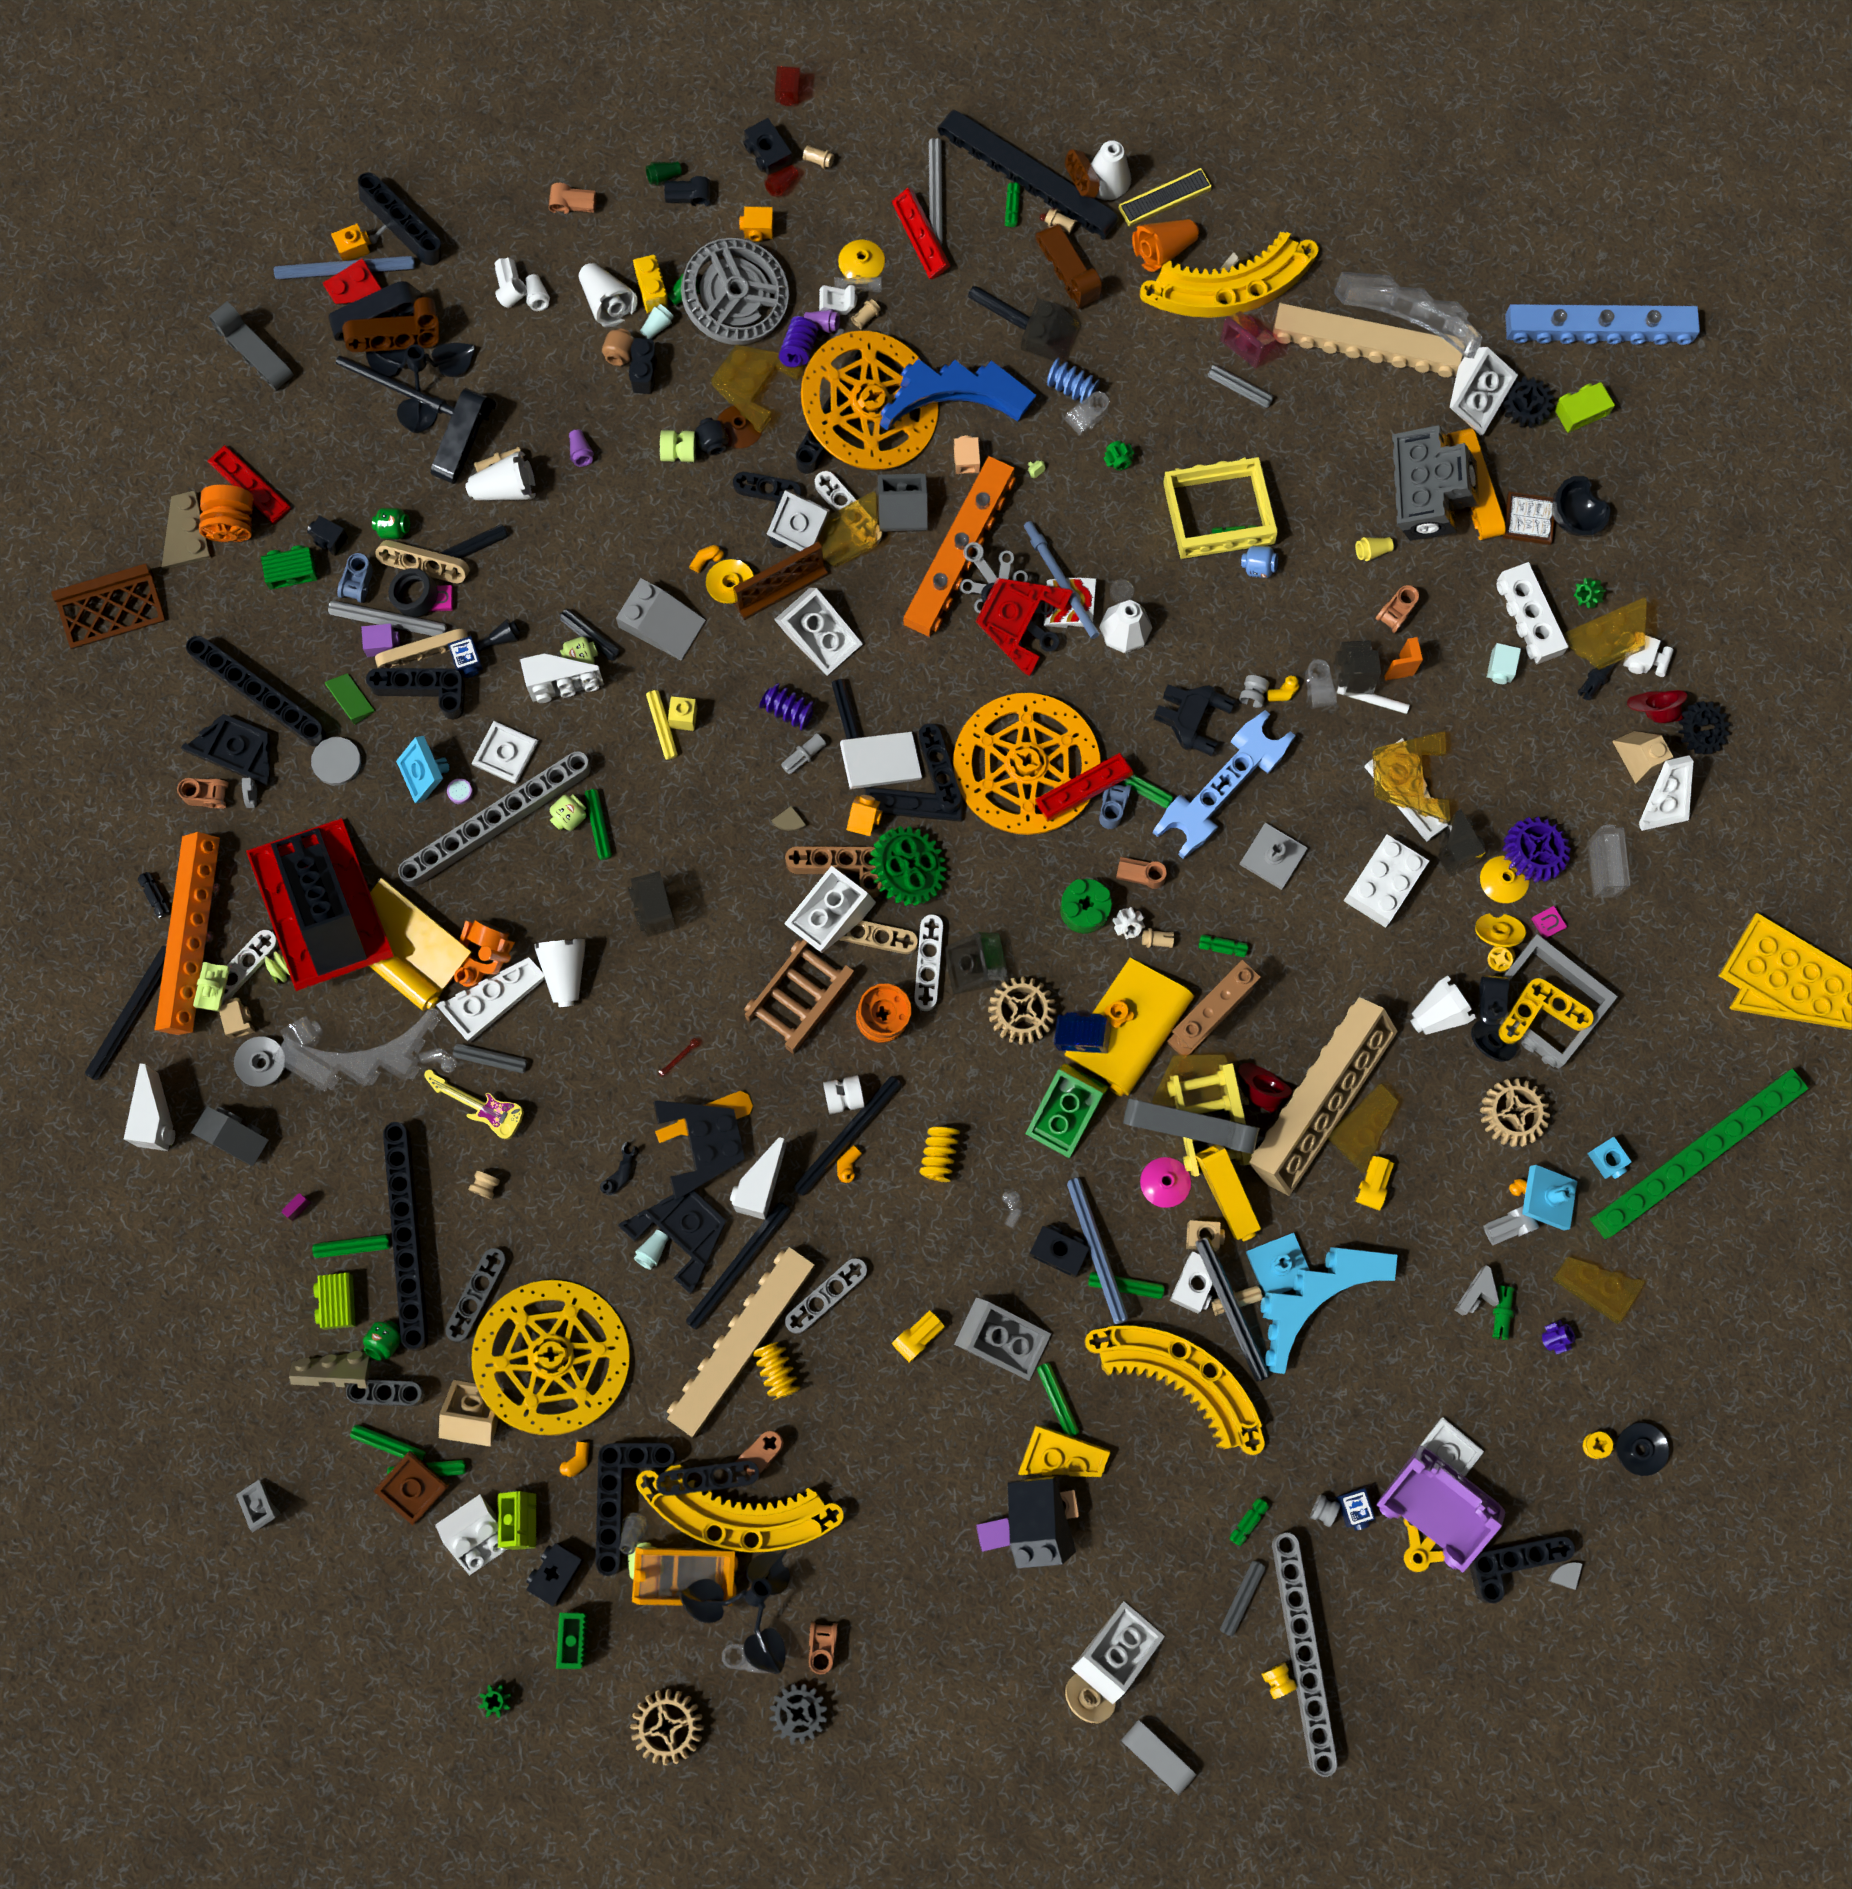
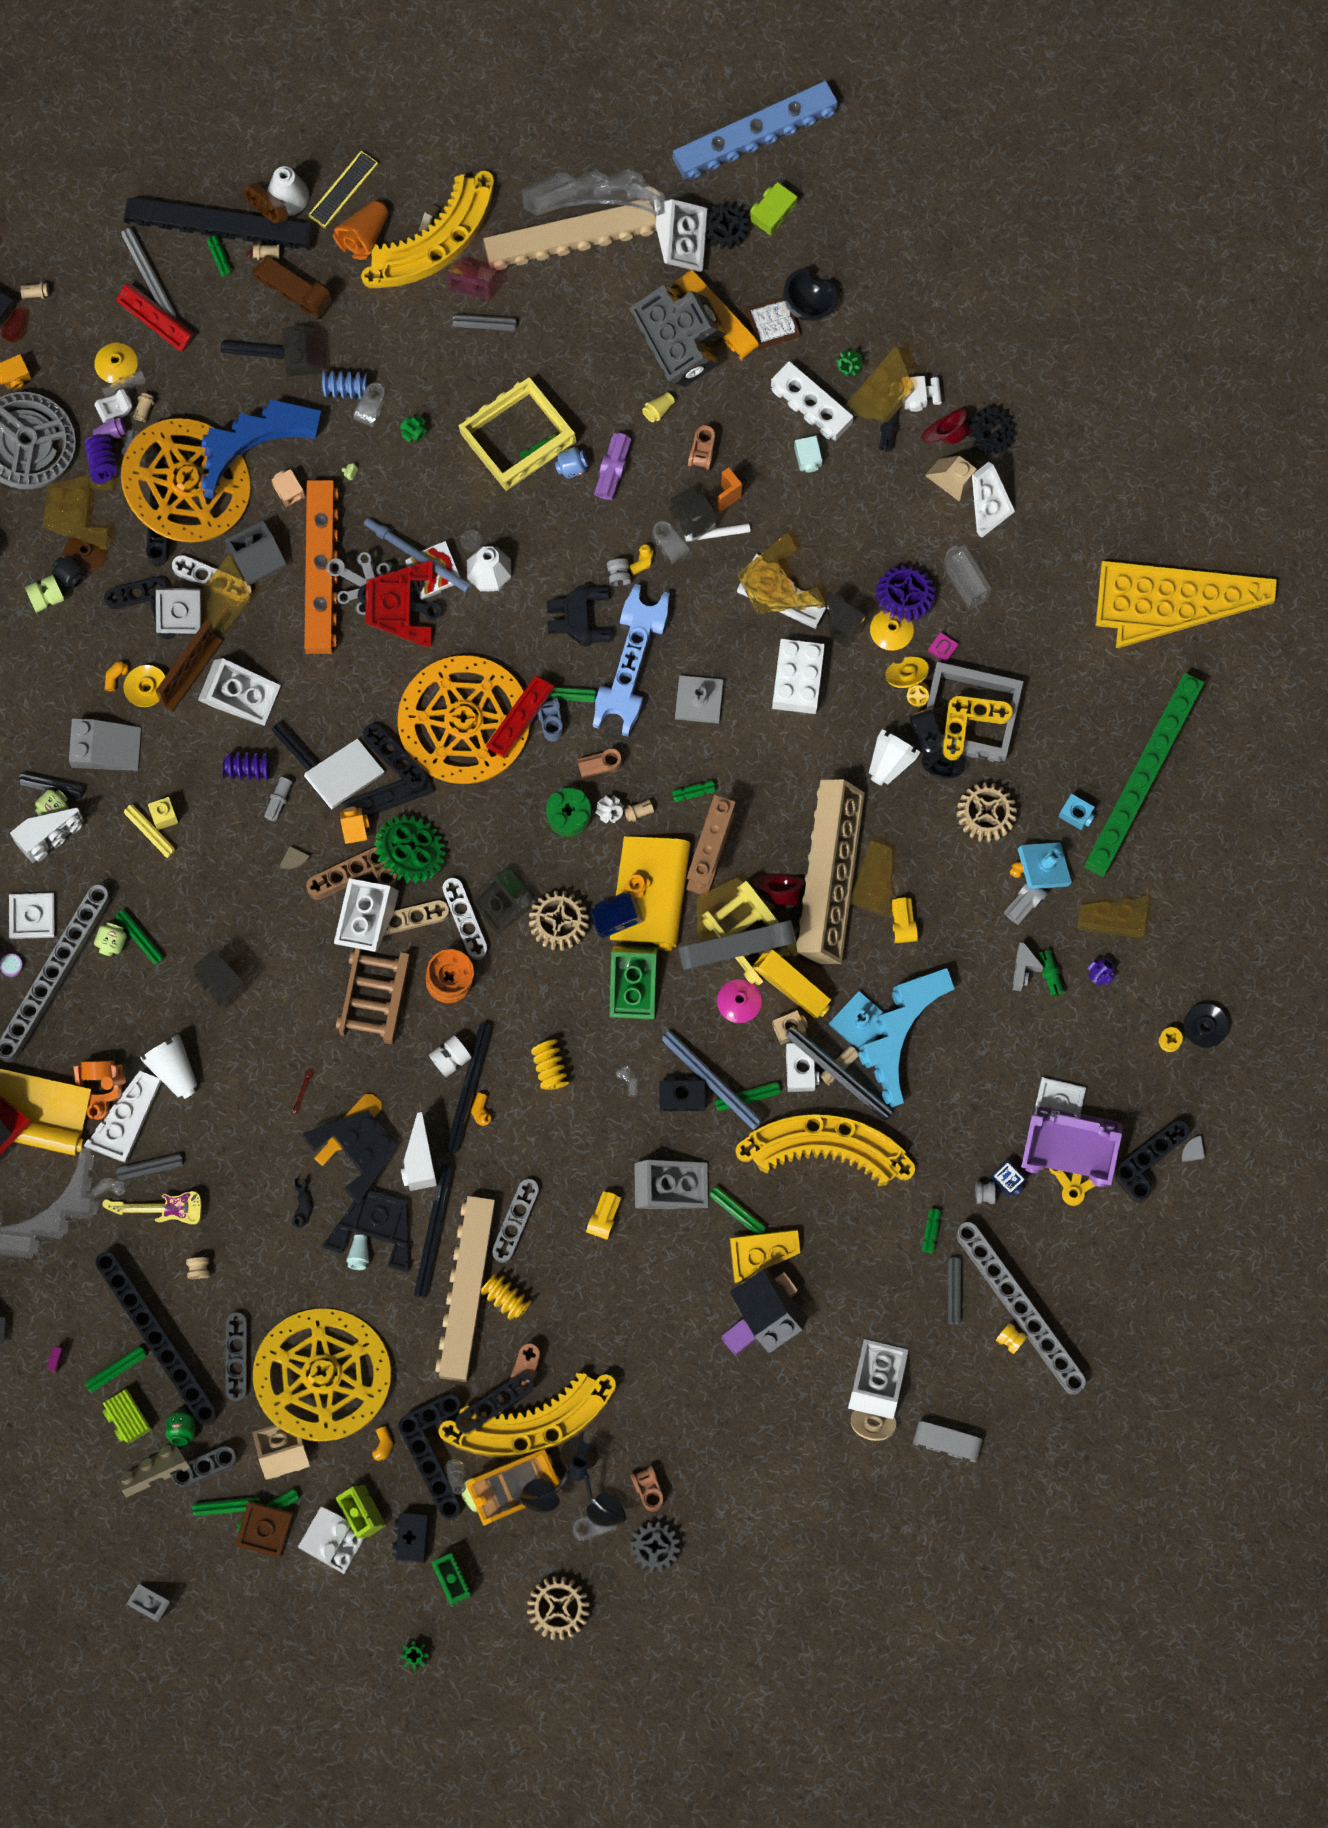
camera: 25 degrees left, 0 degrees up
(1299, 583) = (612, 466): none -> medium lavender piece

